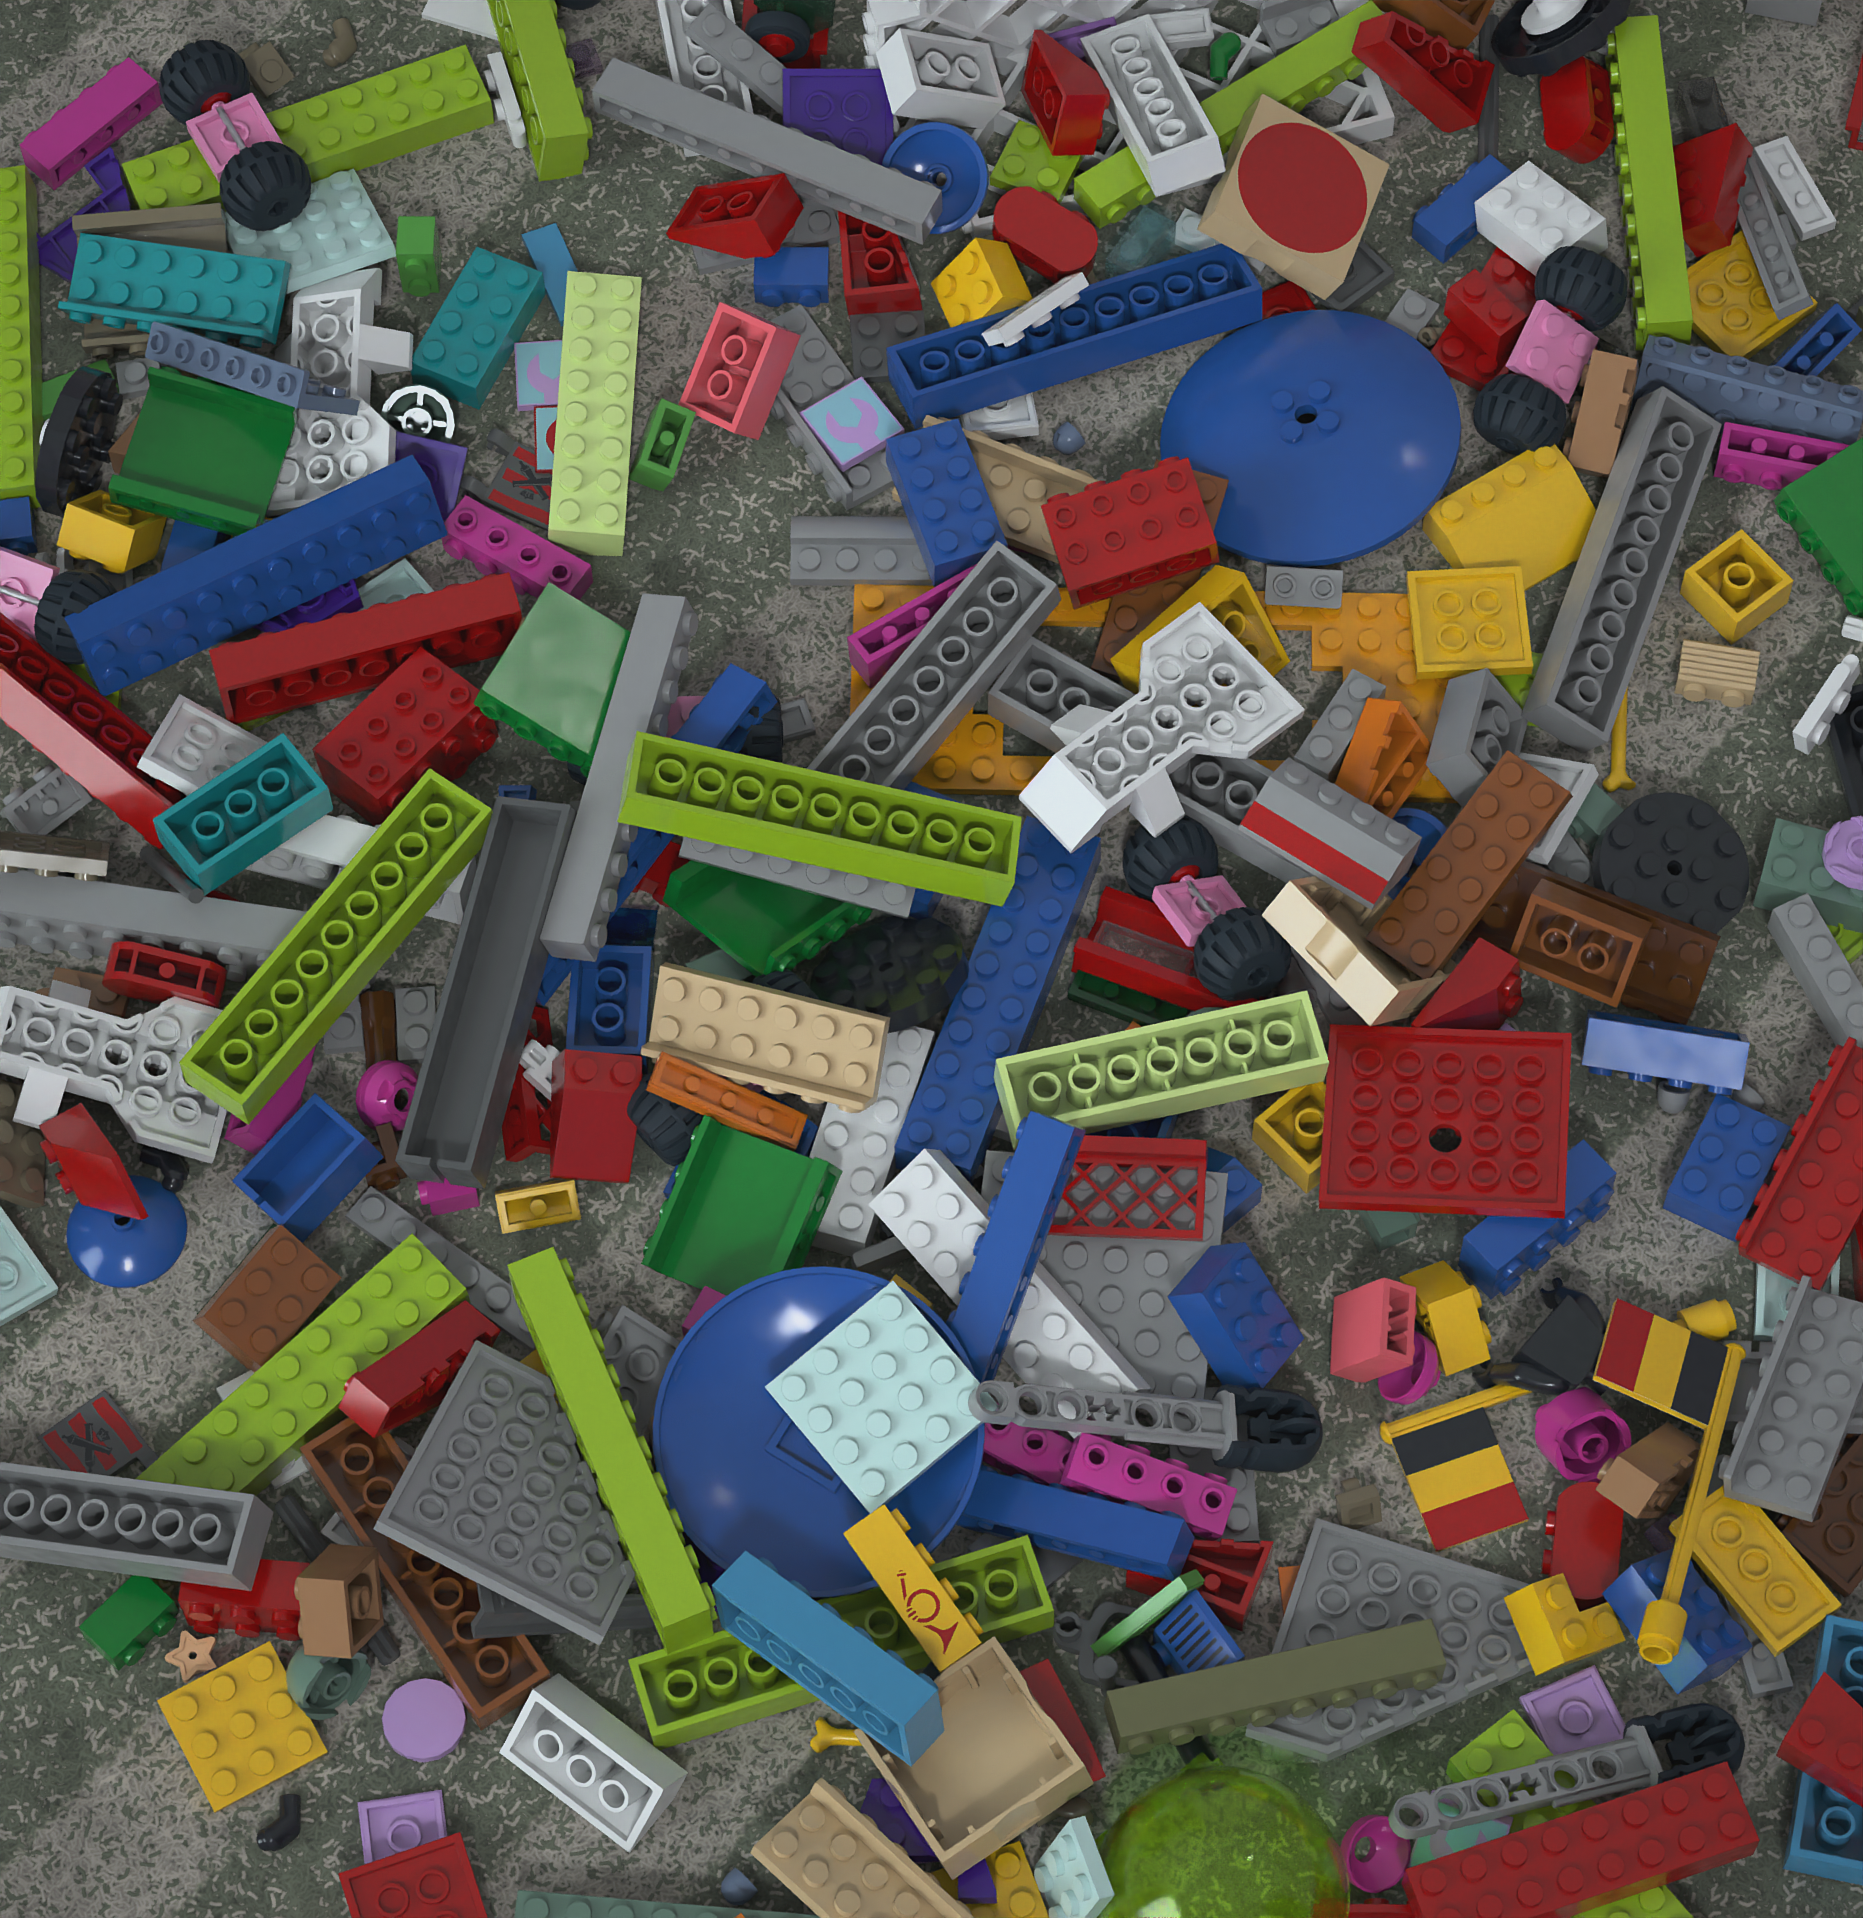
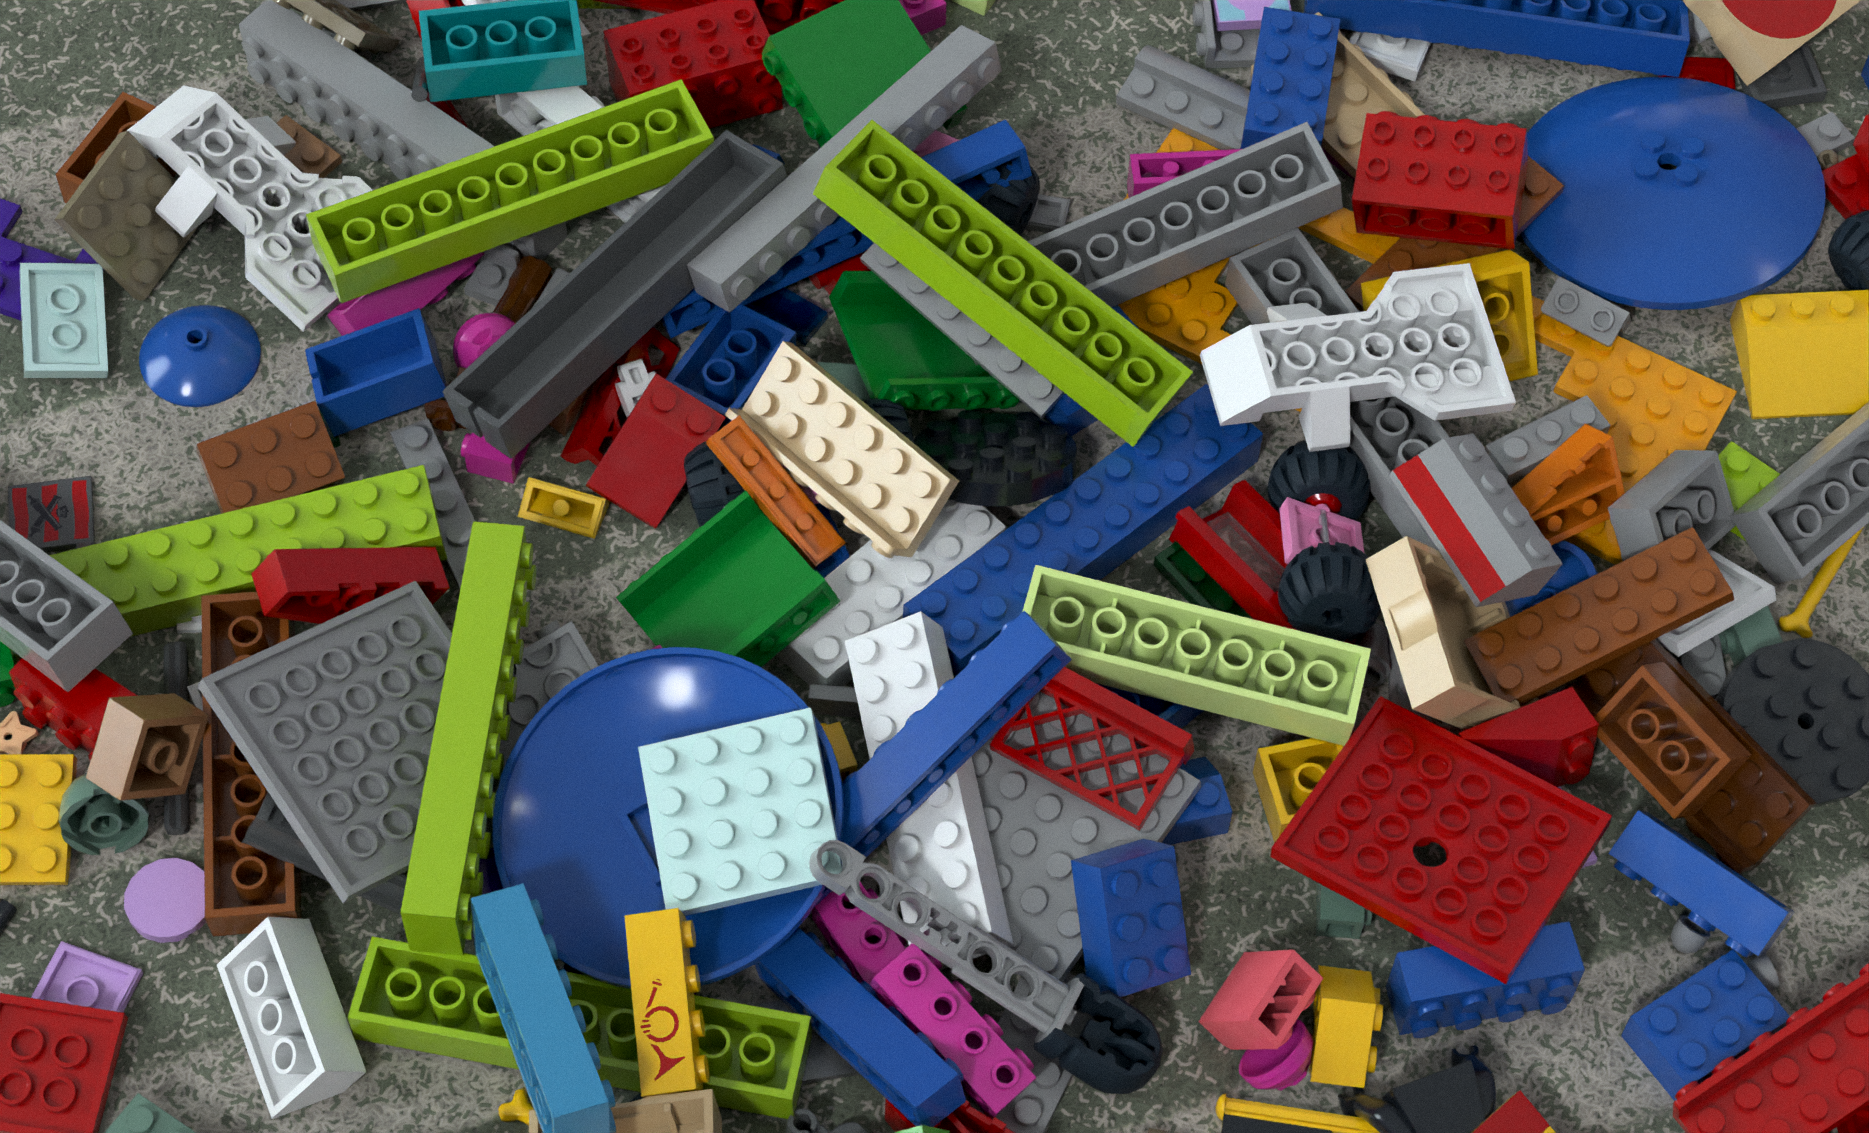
camera: 25 degrees right, 5 degrees down
(89, 1164) = (195, 274): red slope -> none
(161, 974) = (355, 150): red brick -> none
(170, 1165) = (270, 321): black arm -> none
(1067, 439) = (1439, 97): sand blue hinge -> none
(1469, 622) = (1726, 409): yellow plate -> none

